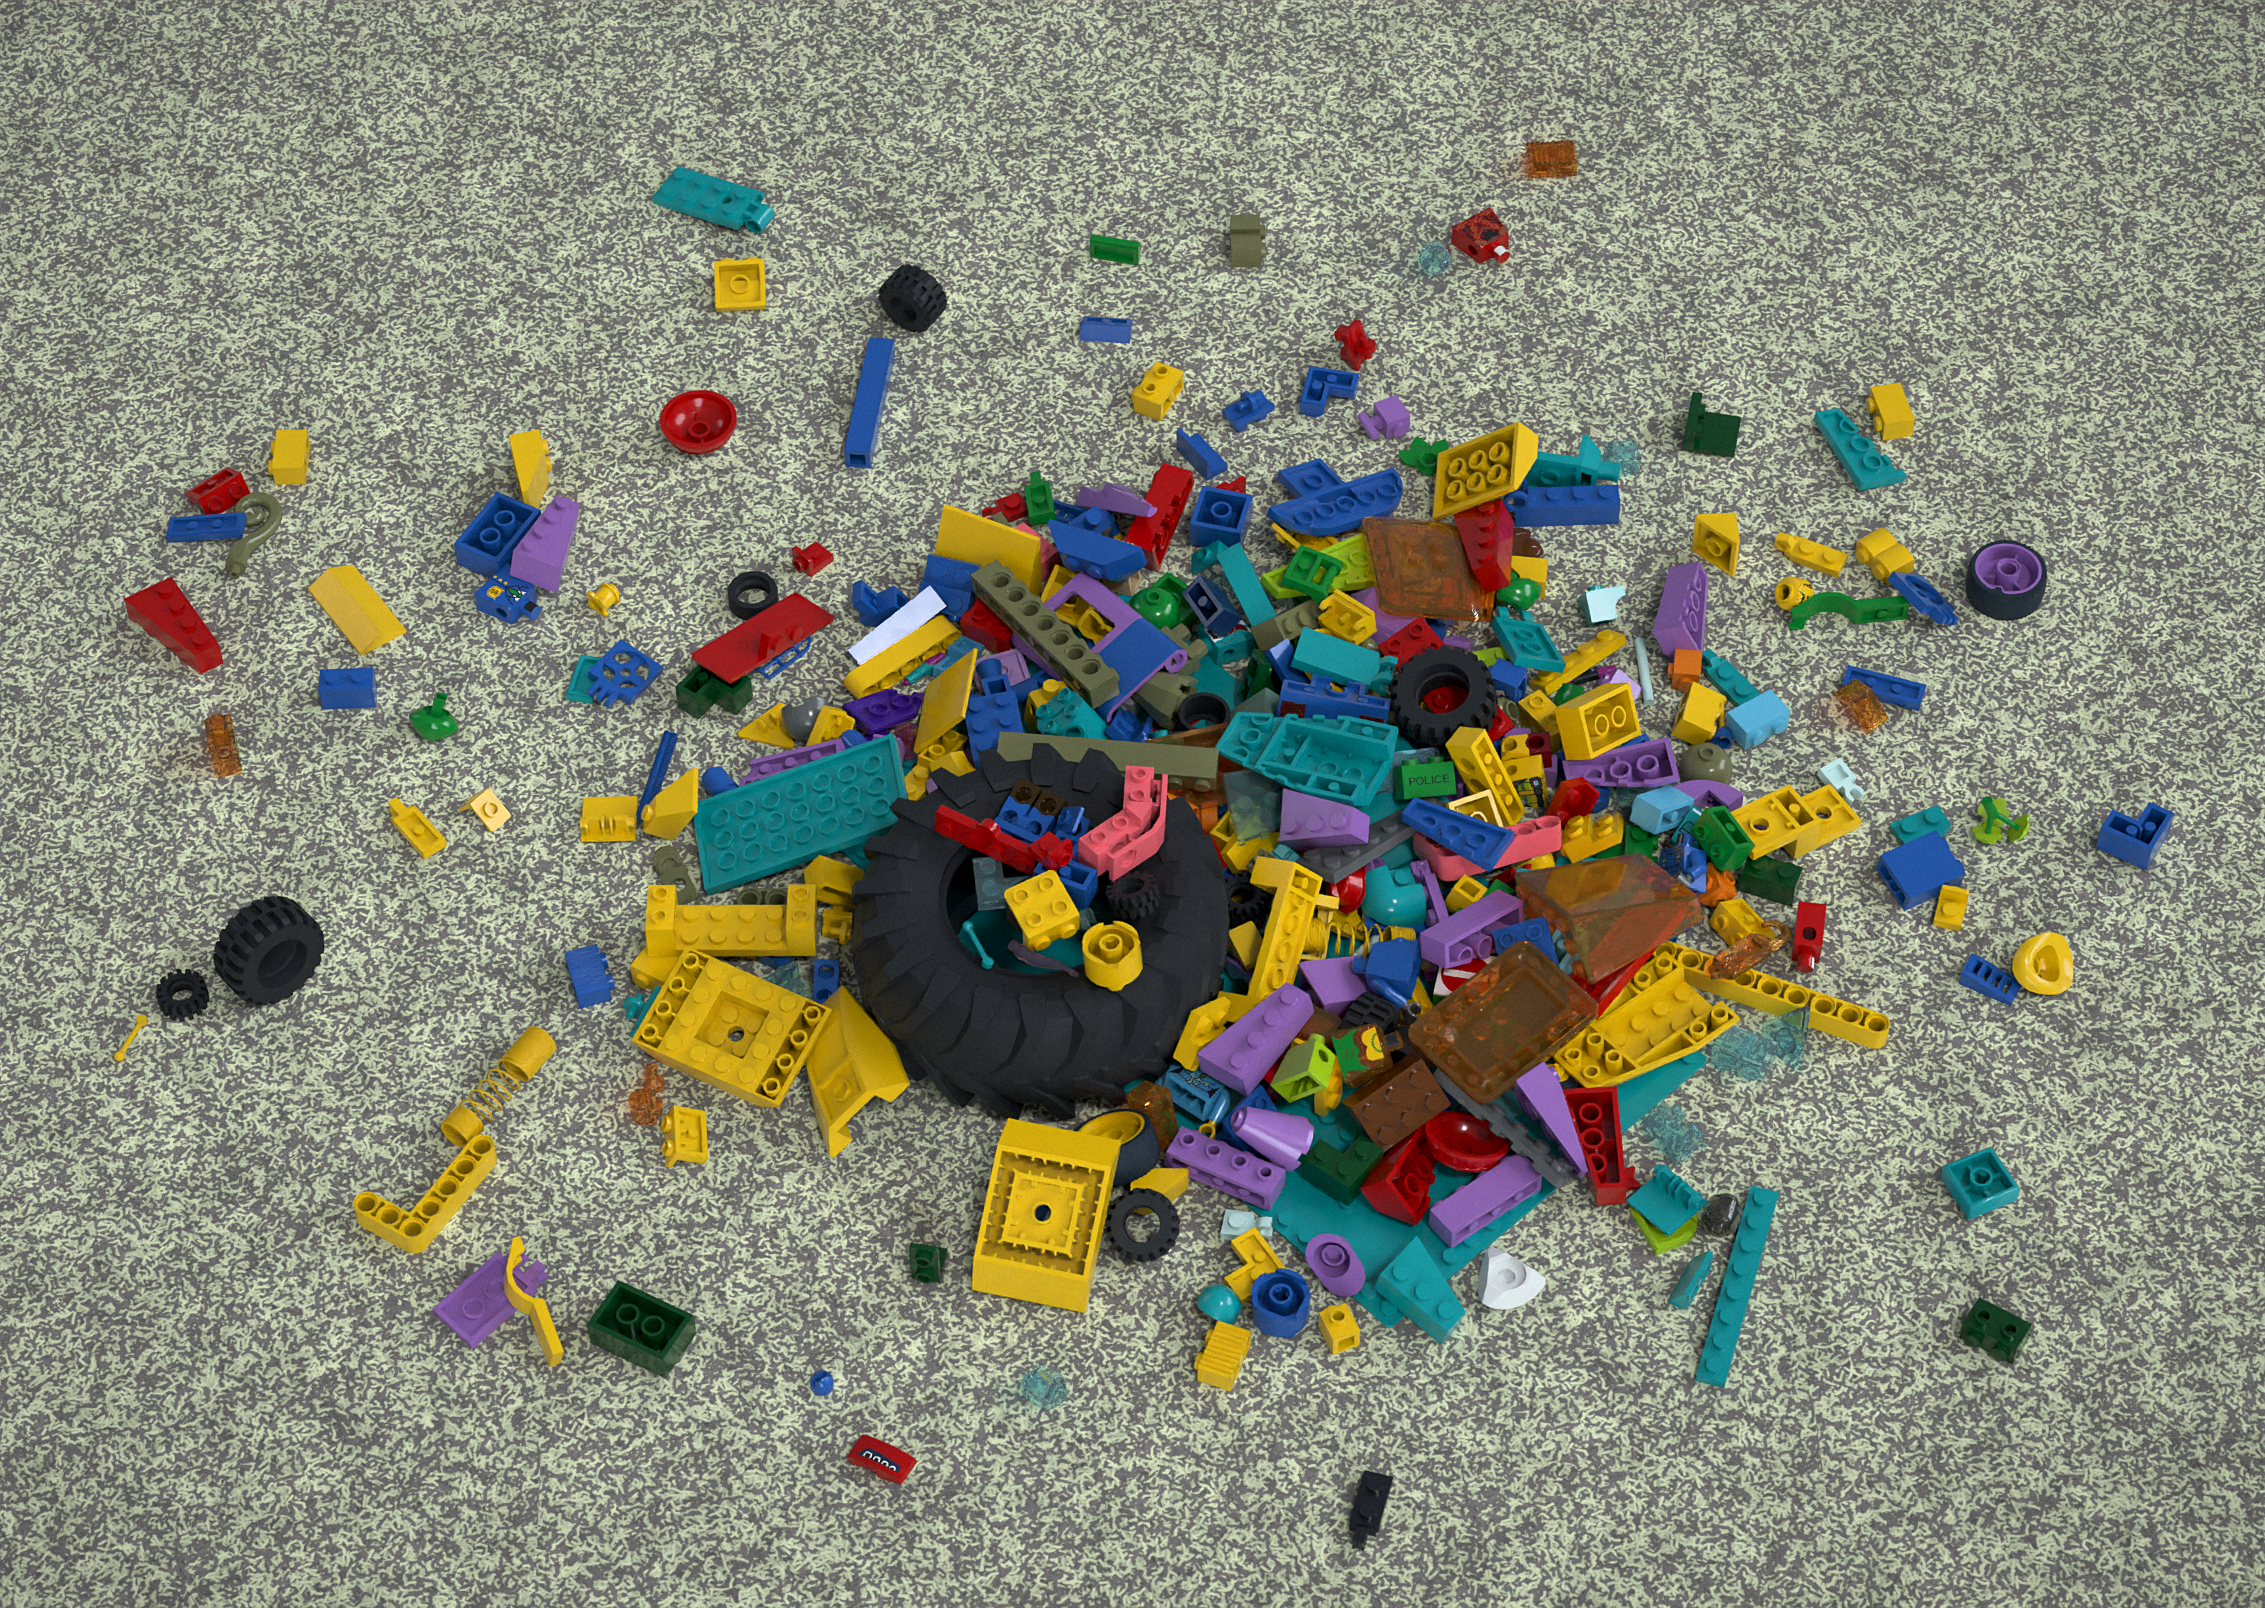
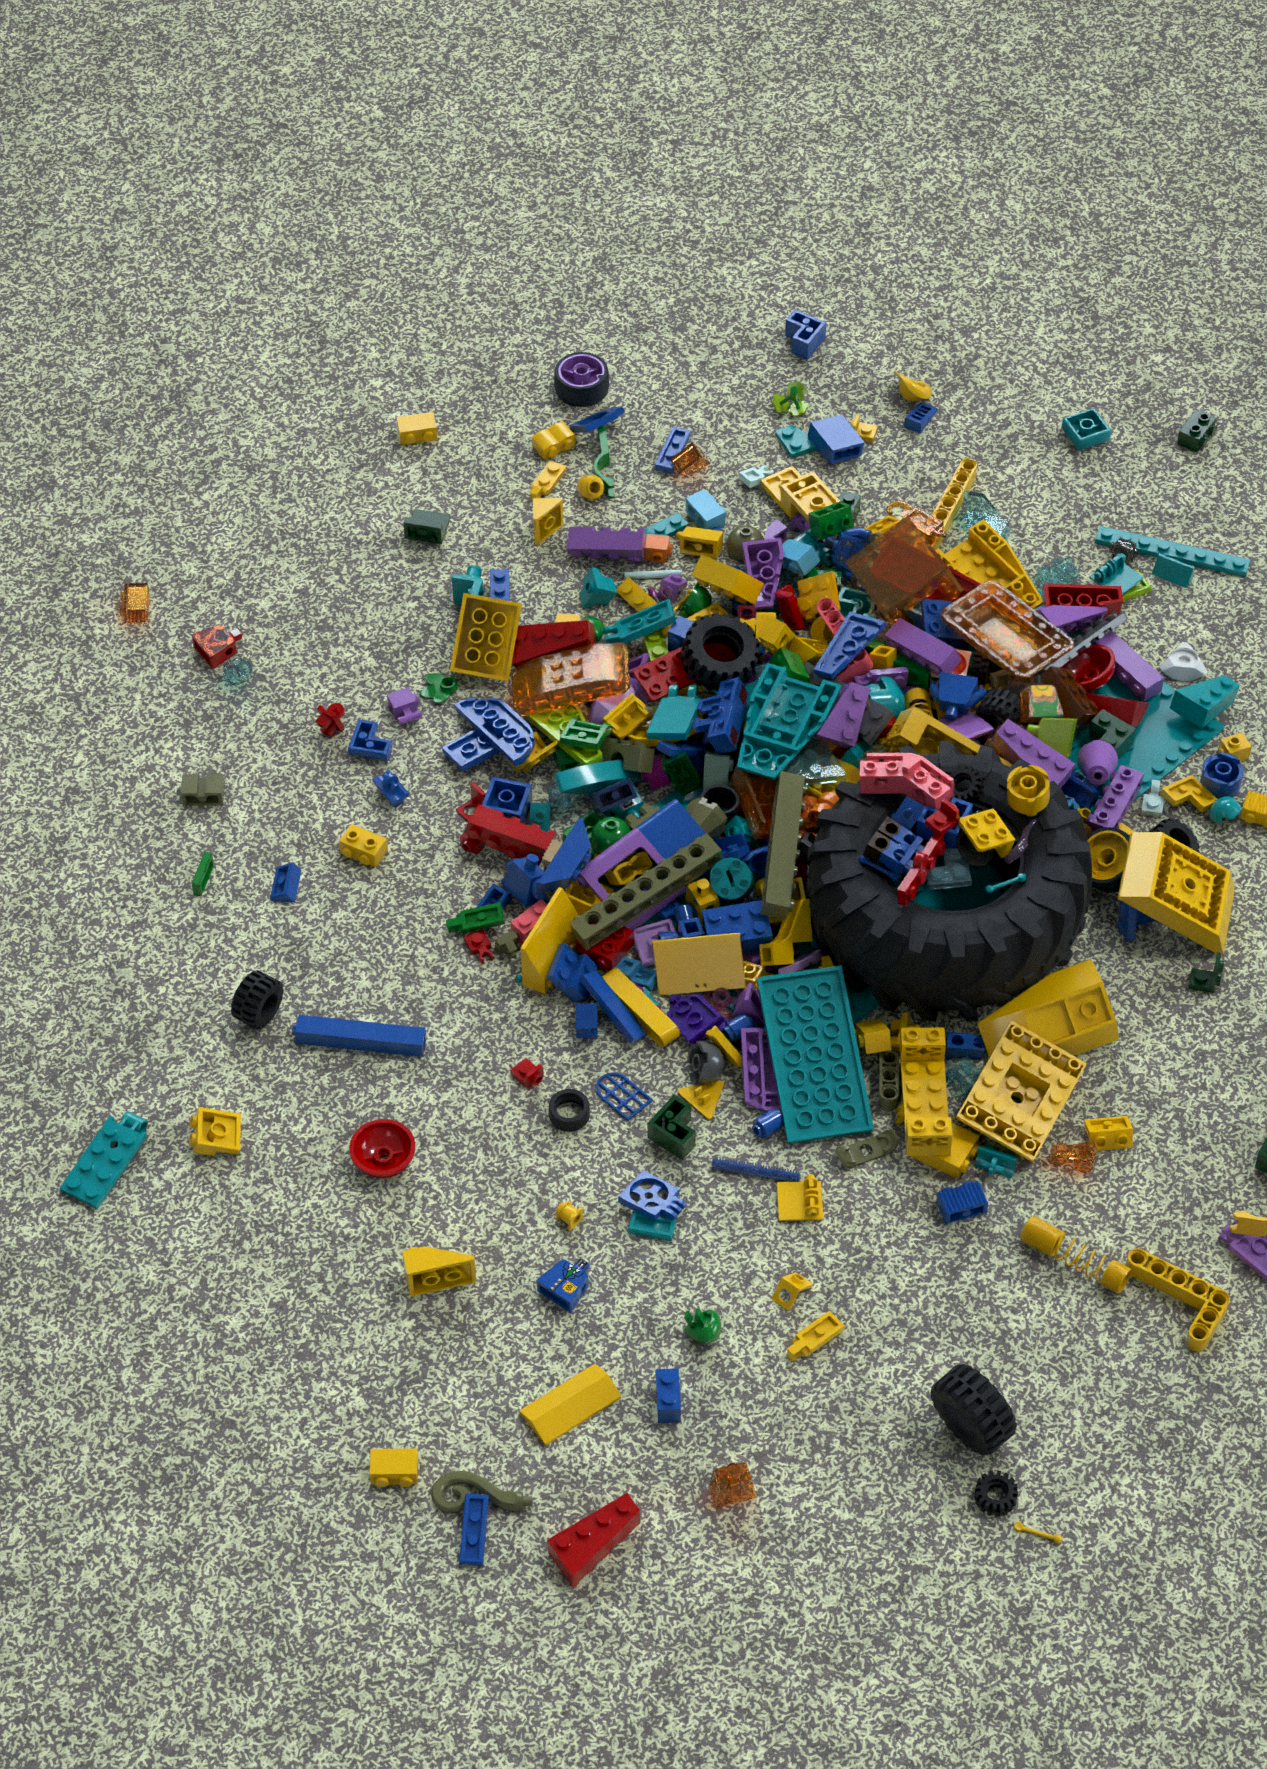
camera: 90 degrees left, 0 degrees up
(219, 491) = (429, 1524): red bracket -> none
(494, 534) = (503, 1291): blue brick -> none
(546, 546) = (520, 1247): medium lavender wedge -> none
(672, 807) = (796, 1145): yellow slope -> none
(762, 637) = (627, 1089): red bracket -> none
(1116, 500) = (493, 862): medium lavender wedge -> none
(1200, 455) = (431, 821): blue panel -> none
(1335, 1264) = (1188, 743): medium lavender piece -> none
(1626, 453) = (450, 567): clear light blue brick -> none
(1808, 935) = (893, 489): red torso -> none
(1857, 453) = (450, 451): teal wing -> none

